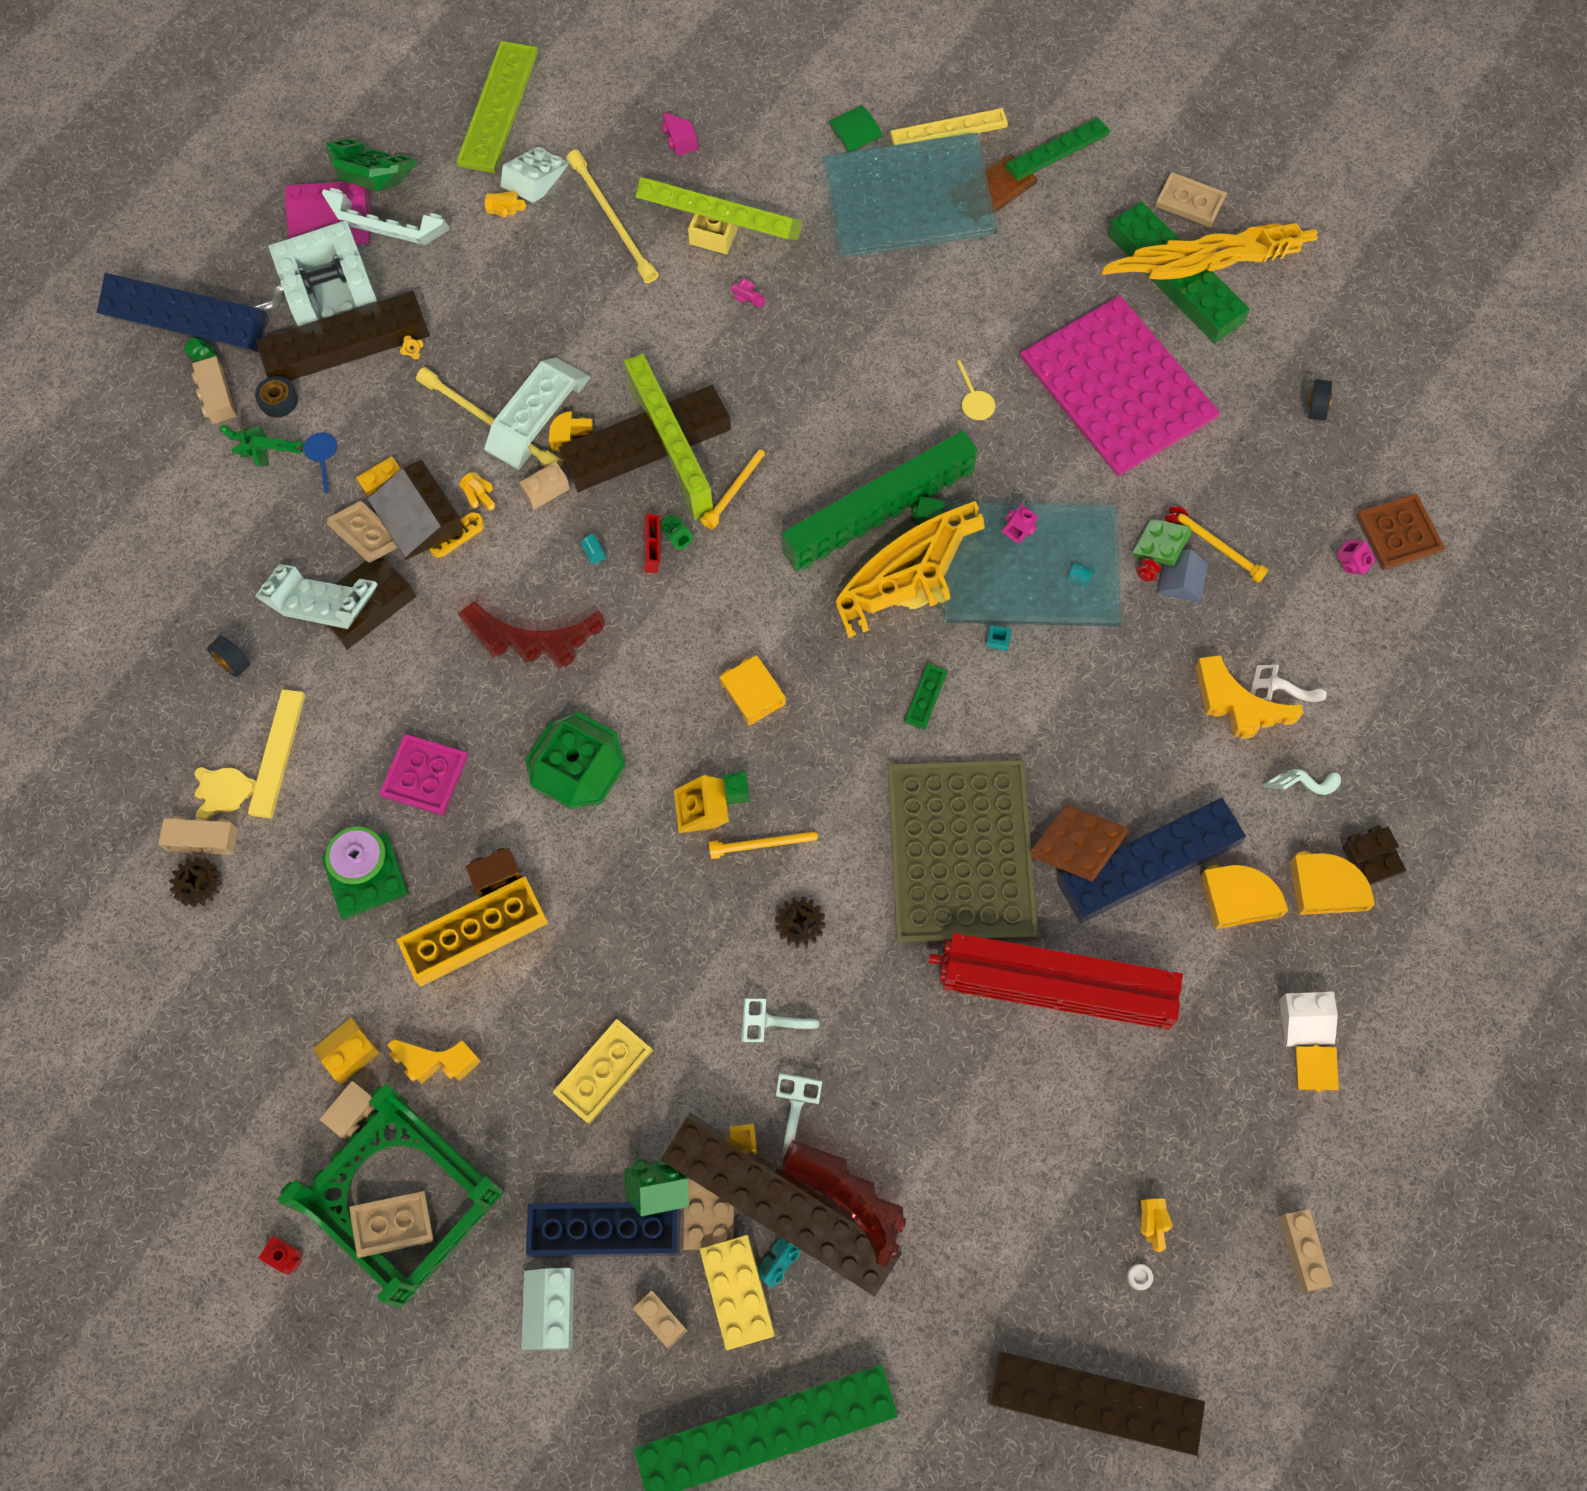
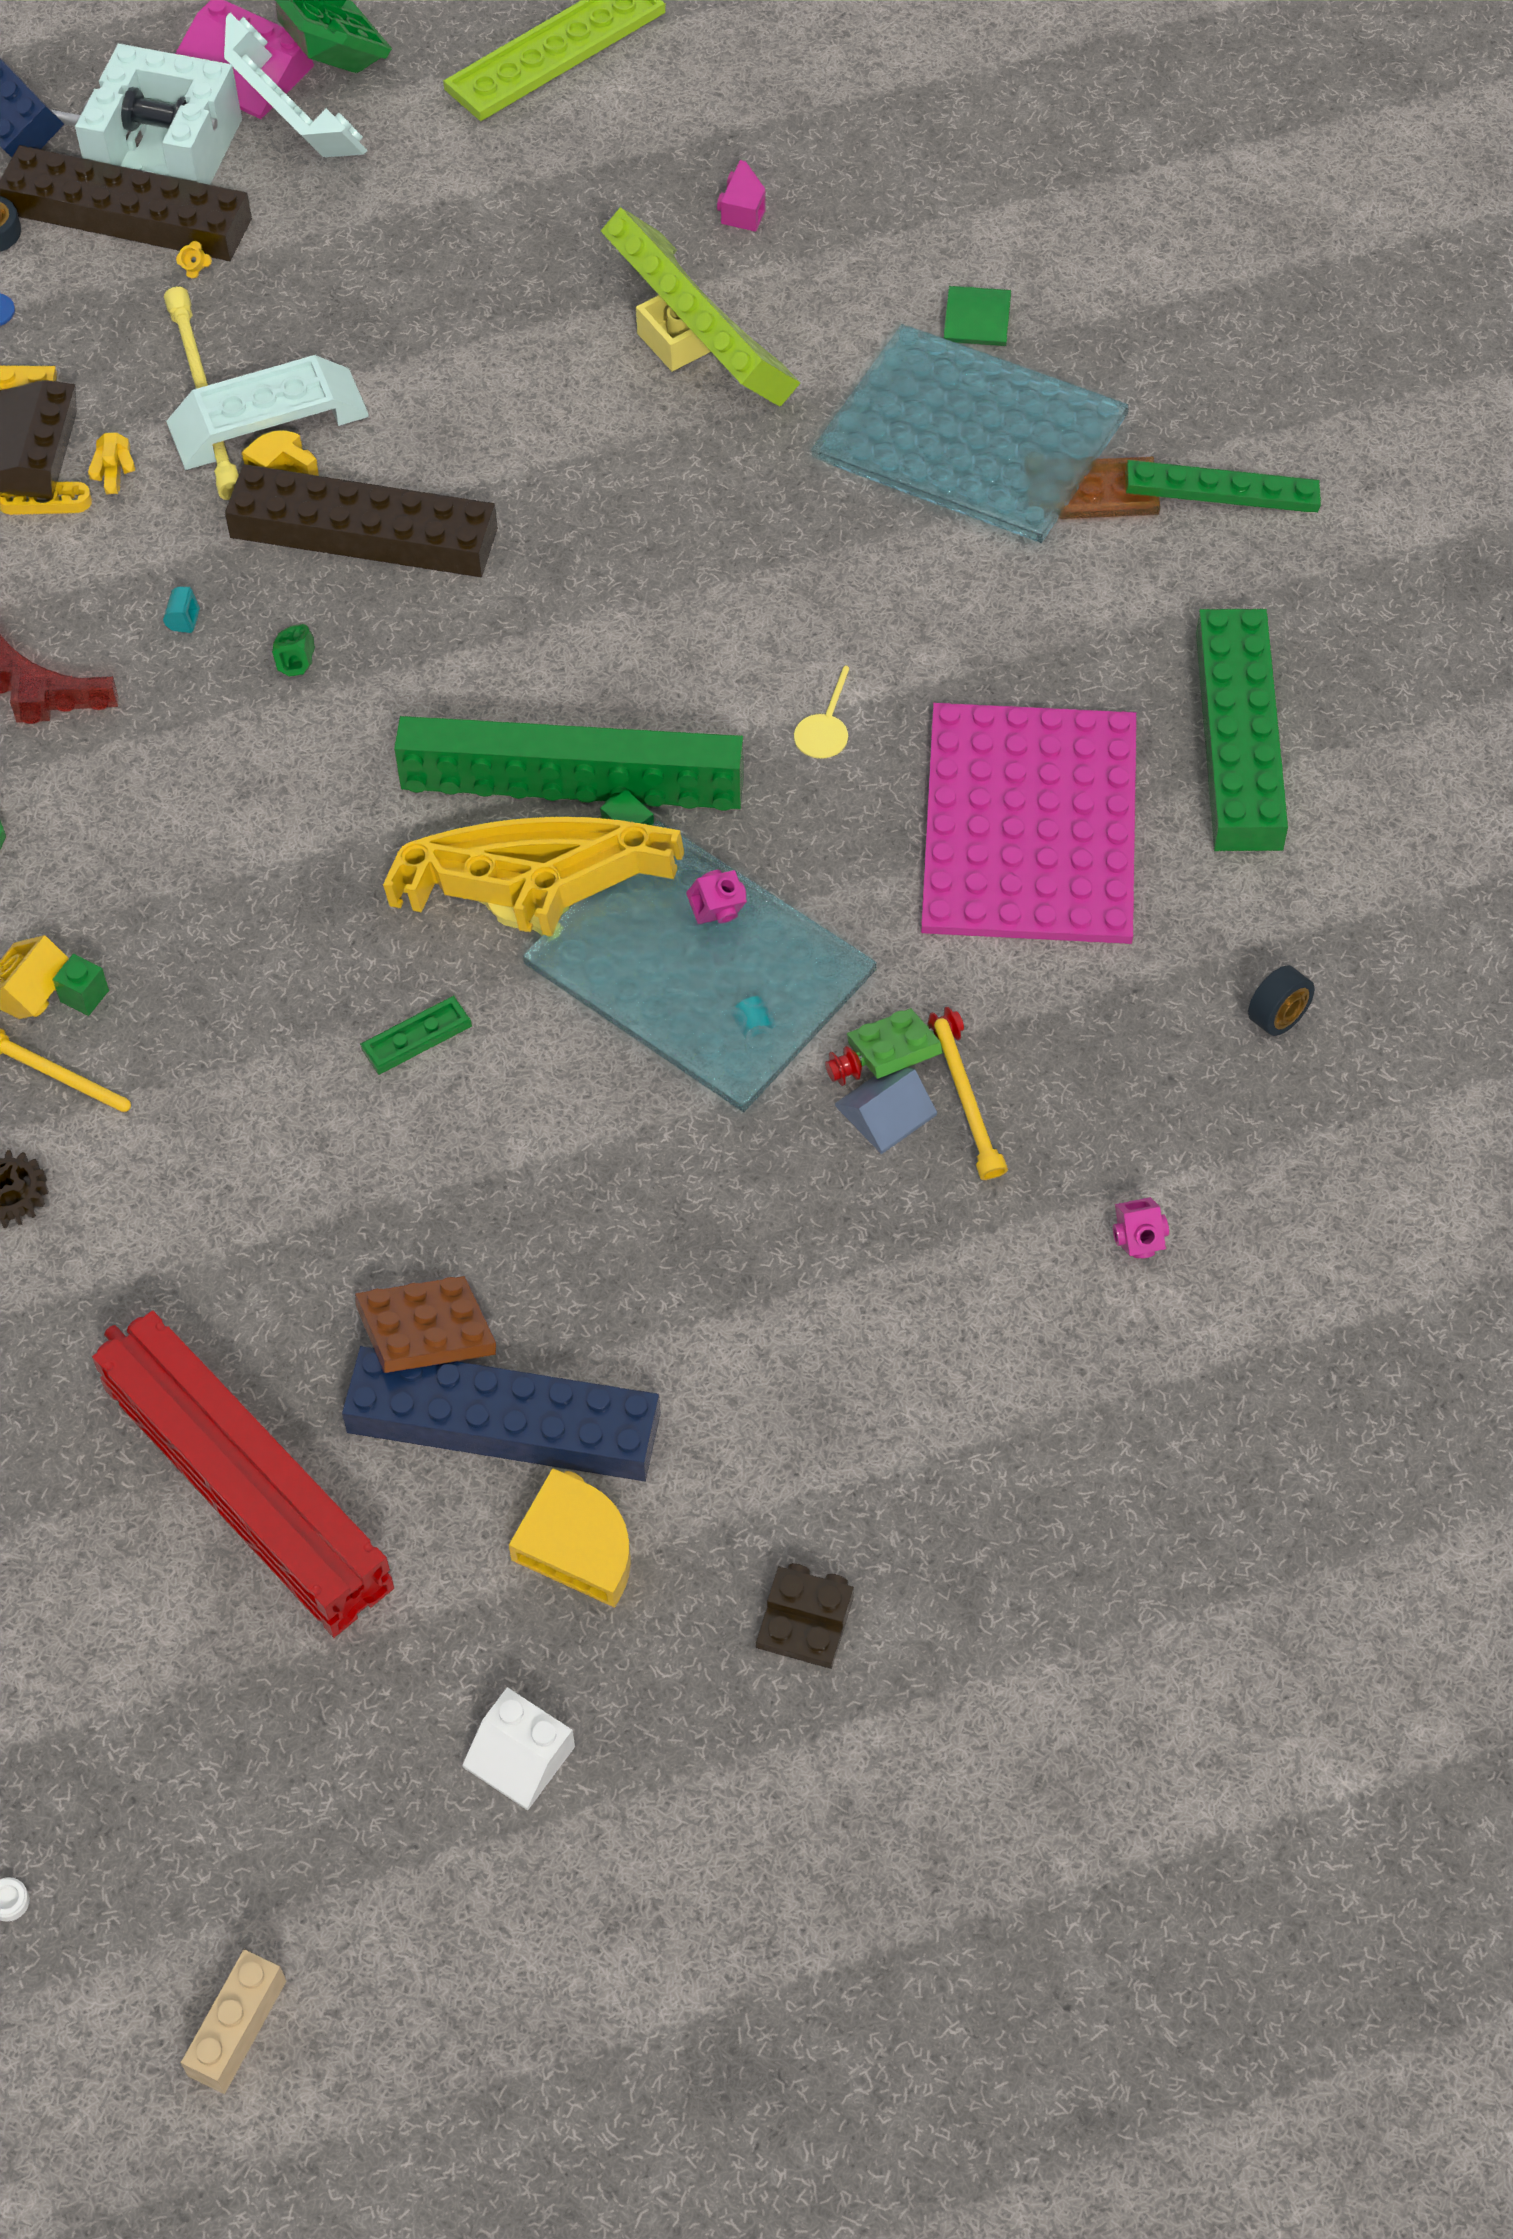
camera: 35 degrees right, 10 degrees down
(503, 203) = (451, 158): yellow rock -> none
(532, 173) = (521, 144): light aqua slope -> none
(544, 485) = (192, 502): tan brick -> none
(645, 268) = (553, 330): light yellow hose -> none
(651, 521) = (252, 645): red piece -> none
(687, 470) = (355, 597): lime arch -> none
(711, 518) = (355, 661): yellow piece -> none
(745, 291) = (646, 428): dark pink plate -> none
(752, 689) = (208, 887): yellow panel -> none
(955, 126) = (1138, 393): light yellow tile -> none
(961, 851) = (278, 1240): olive plate -> none
(998, 638) = (570, 1023): teal brick -> none
(1155, 1222) = (86, 1839): yellow rock -> none
(1191, 199) = (1351, 653): tan plate -> none
(1246, 711) = (804, 1317): yellow arch -> none
(1253, 245) = (1287, 722): yellow piece -> none
(1275, 683) = (877, 1311): white piece -> none
(1317, 1068) = (474, 1820): yellow piece -> none
(1329, 785) = (827, 1489): light aqua piece -> none
(1329, 885) = (704, 1606): yellow brick -> none
(1400, 531) = (1241, 1239): dark orange plate -> none

